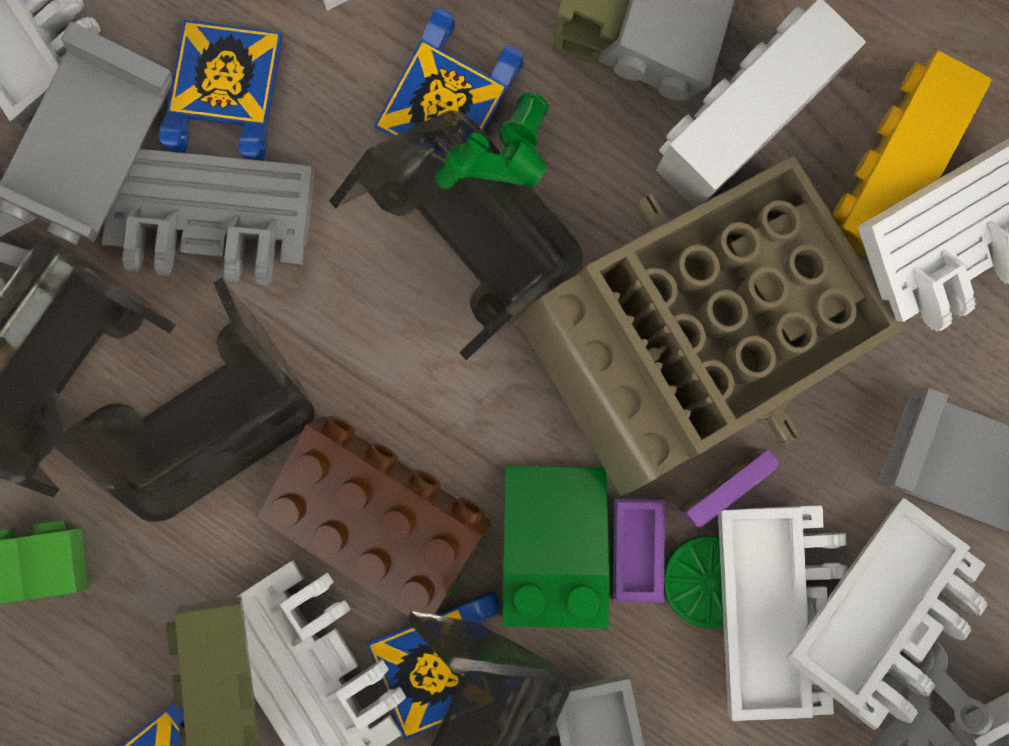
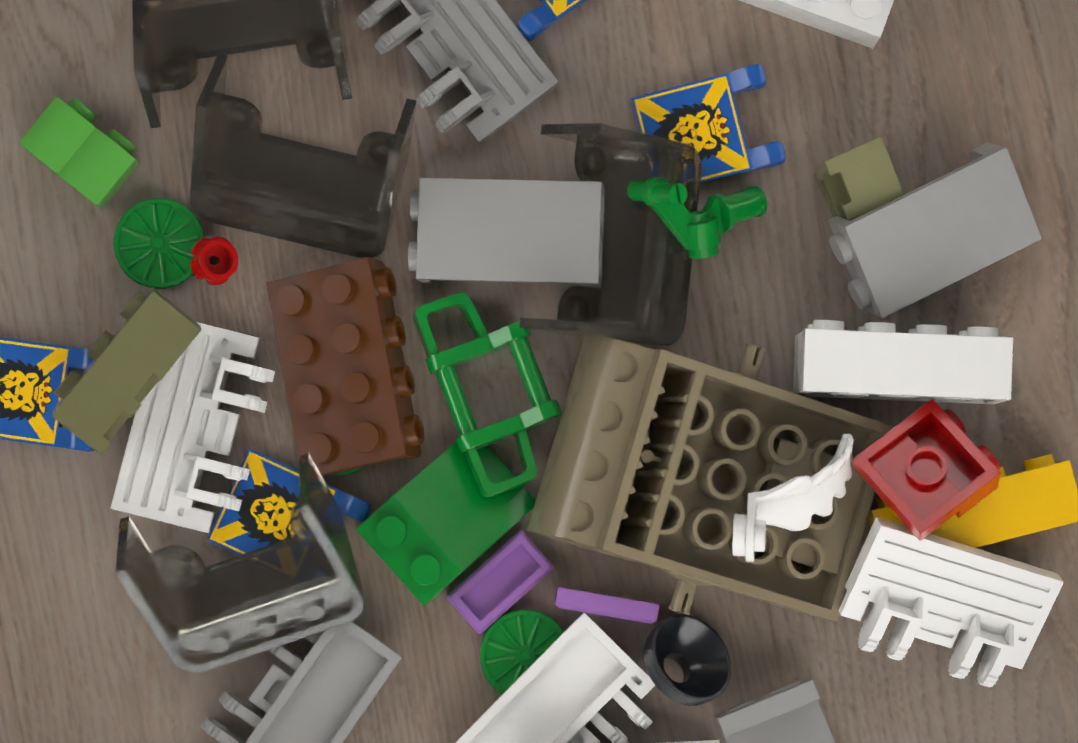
camera: 45 degrees right, 0 degrees up
(152, 569) = (156, 242): none -> green wheel
(194, 529) = (226, 257): none -> red plate
(384, 302) = (508, 231): none -> light grey panel
(440, 443) = (485, 344): none -> green bar
(792, 280) = (792, 503): none -> white plant
(834, 455) = (699, 654): none -> black piece
(857, 154) = (928, 469): none -> red plate

